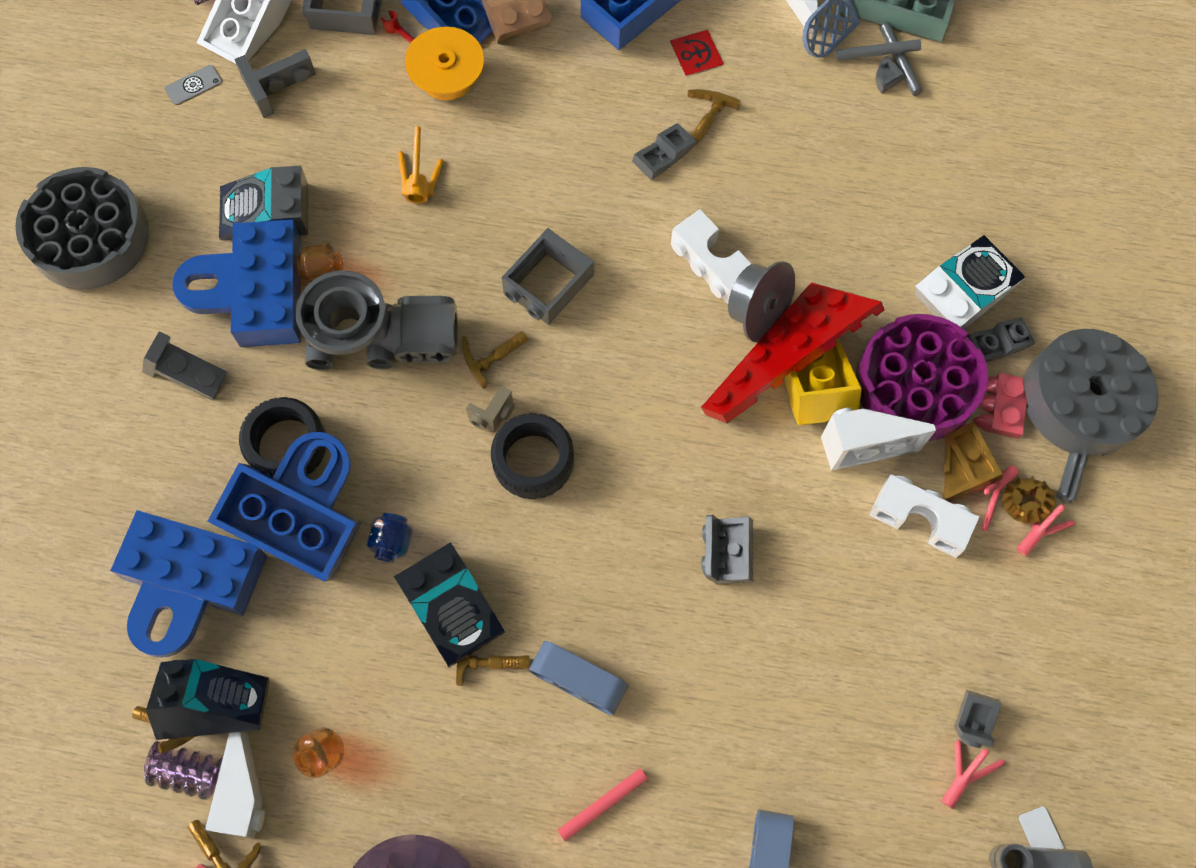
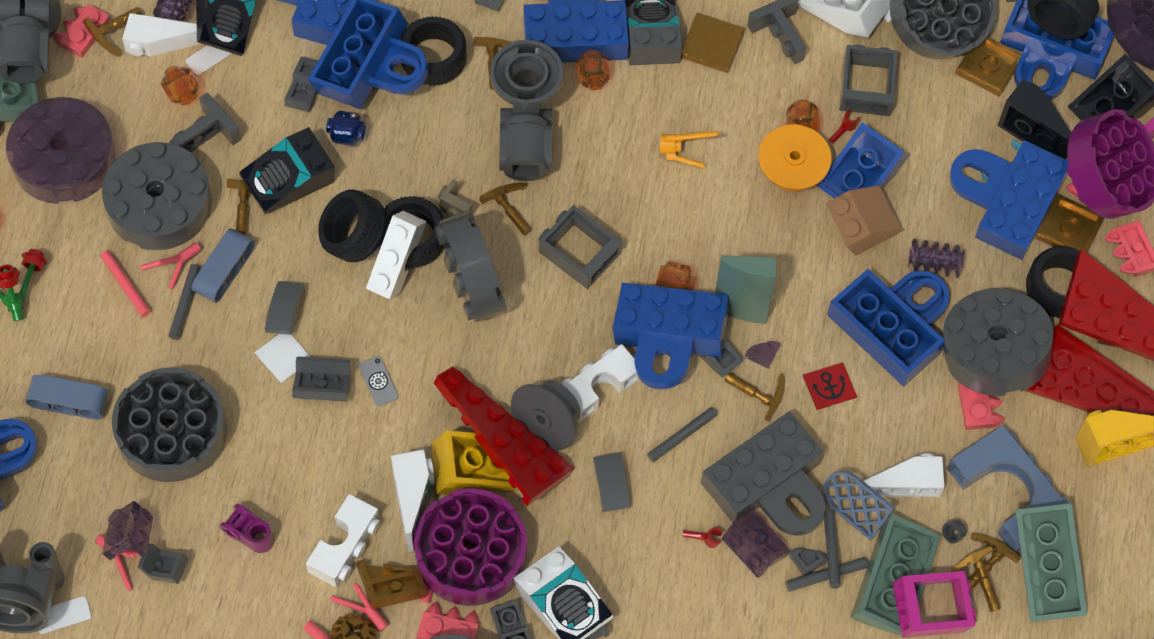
camera: 90 degrees right, 5 degrees down
(272, 378) = (491, 44): none -> pearl gold piece
(274, 730) = (205, 59): none -> white sticker
(284, 144) = (712, 42): none -> pearl gold tile
(318, 596) = (301, 92): none -> dark grey slope
(380, 717) = (207, 126): none -> dark grey bracket
(388, 60) = (803, 113): none -> clear orange head
(446, 765) = (181, 202): none -> dark grey brick
(533, 546) = (336, 221): none -> black tyre
(561, 449) = (389, 269): none -> white arch
(570, 736) = (180, 258): none -> coral plant
(587, 182) = (675, 276): none -> clear orange head
(596, 370) = (472, 266): none -> dark grey brick
(617, 90) = (748, 285): none -> sand green slope
(626, 725) = (184, 302): none -> dark grey bar
(634, 599) = (284, 308): none -> dark grey slope
(650, 181) = (669, 324): none -> blue brick
(664, 107) = (763, 353): none -> tile
(690, 601) = (280, 355): none -> white sticker
(717, 491) = (378, 381): none -> light grey sticker
(762, 182) = (682, 434): none -> dark grey bar
(775, 746) = (184, 446): none -> dark grey brick
(806, 100) = (767, 473): none -> dark grey brick
(825, 244) = (611, 482): none -> dark grey slope
(873, 160) = (704, 536): none -> red hand
(879, 115) = (755, 543): none -> bracket
(919, 629) = (244, 526): none -> magenta piece
(948, 764) = (128, 529): none -> bracket

